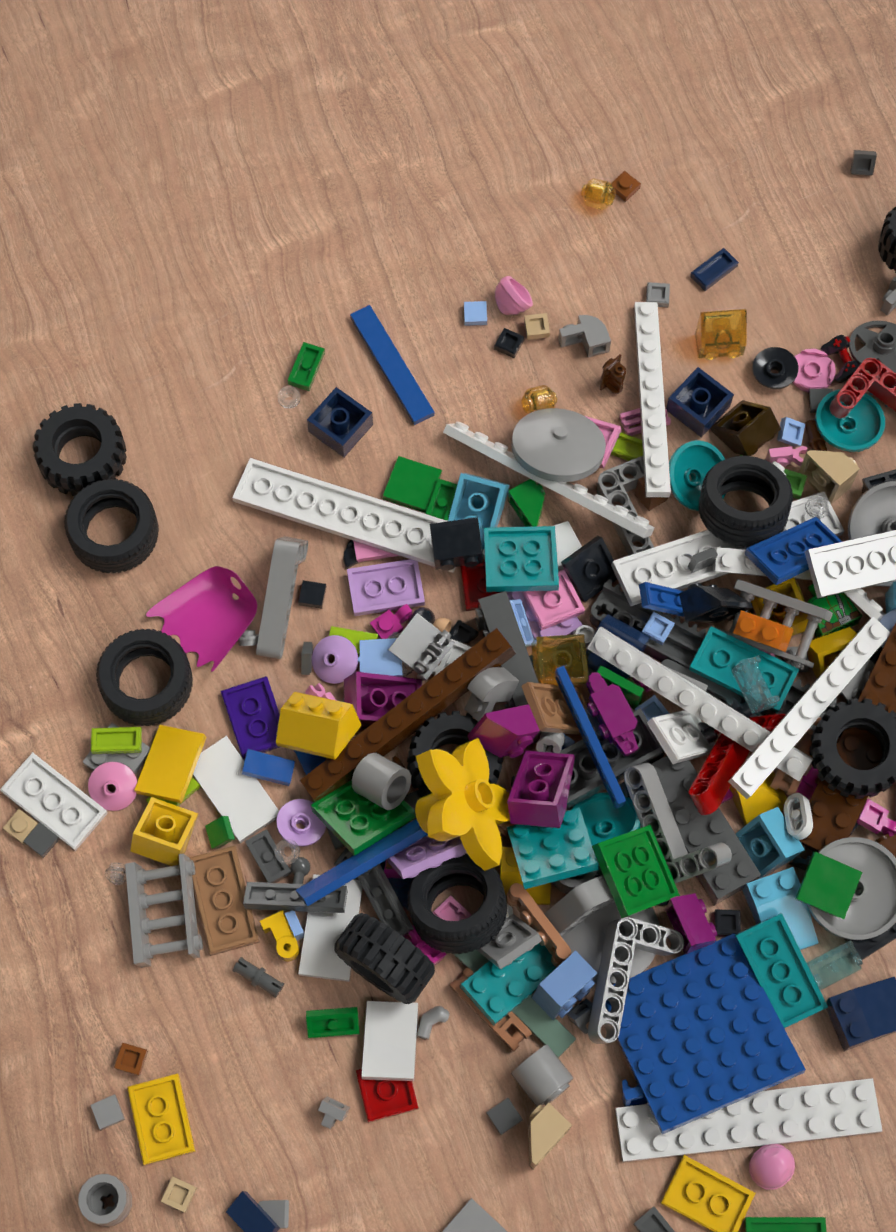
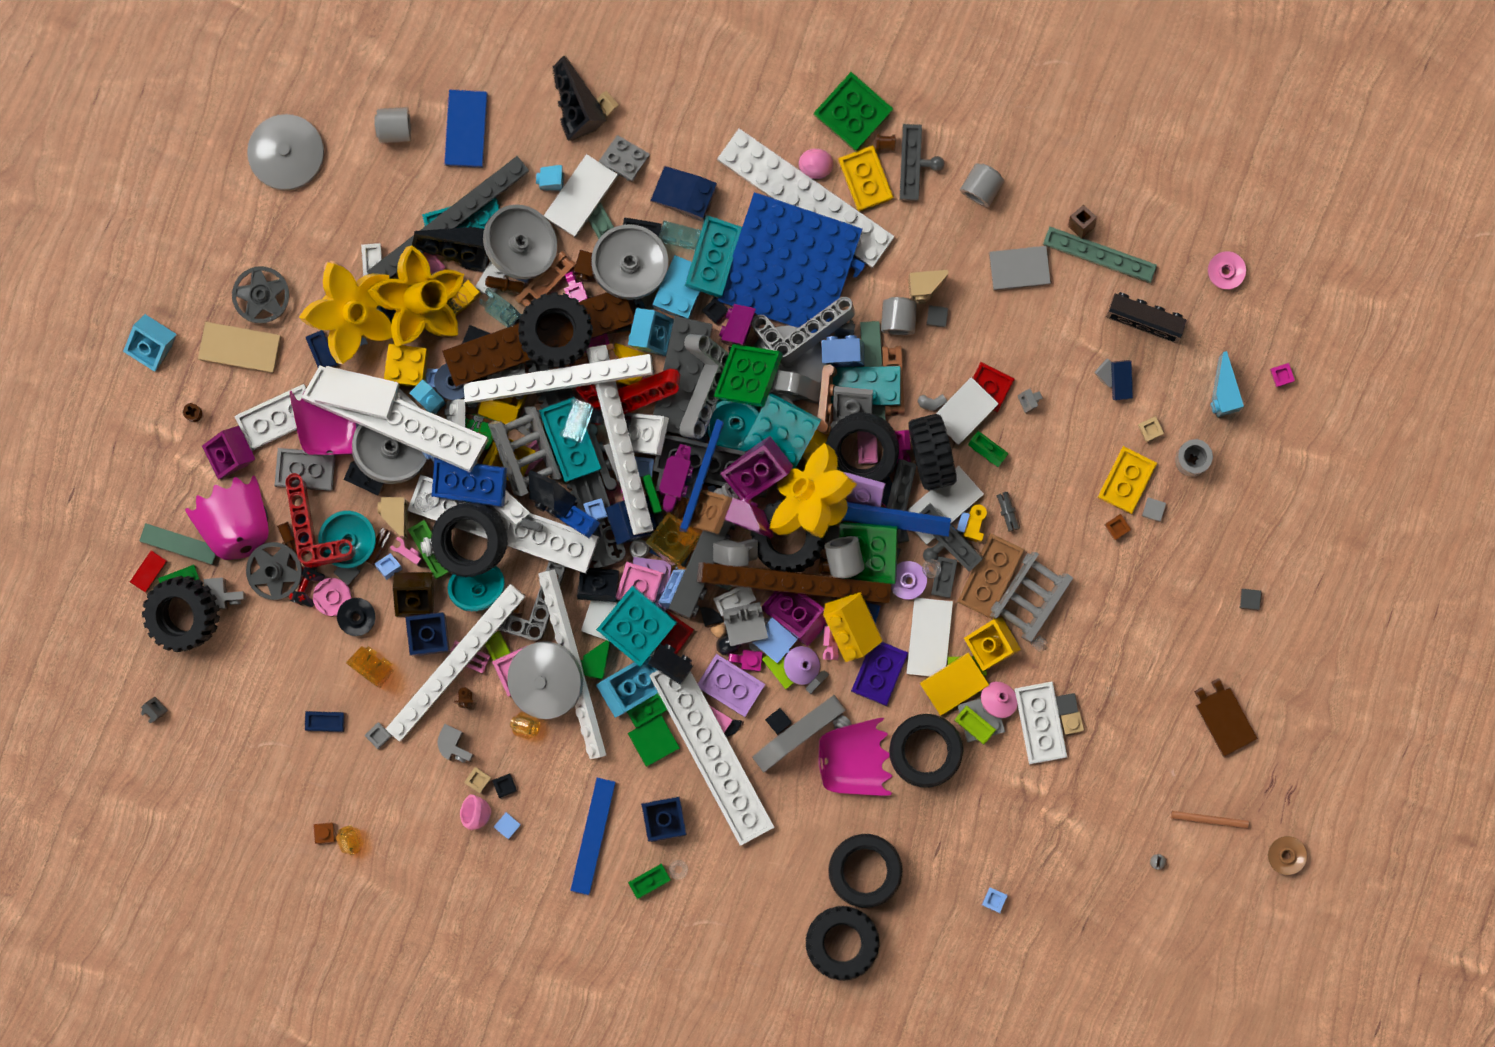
camera: 135 degrees left, 15 degrees up
(220, 832) = (959, 616): green tile -> none
(268, 767) = (898, 631): blue tile -> none
(763, 631) = (539, 449): orange brick -> none
(798, 816) = (624, 326): white plate -> none
(828, 885) = (645, 274): green tile -> none

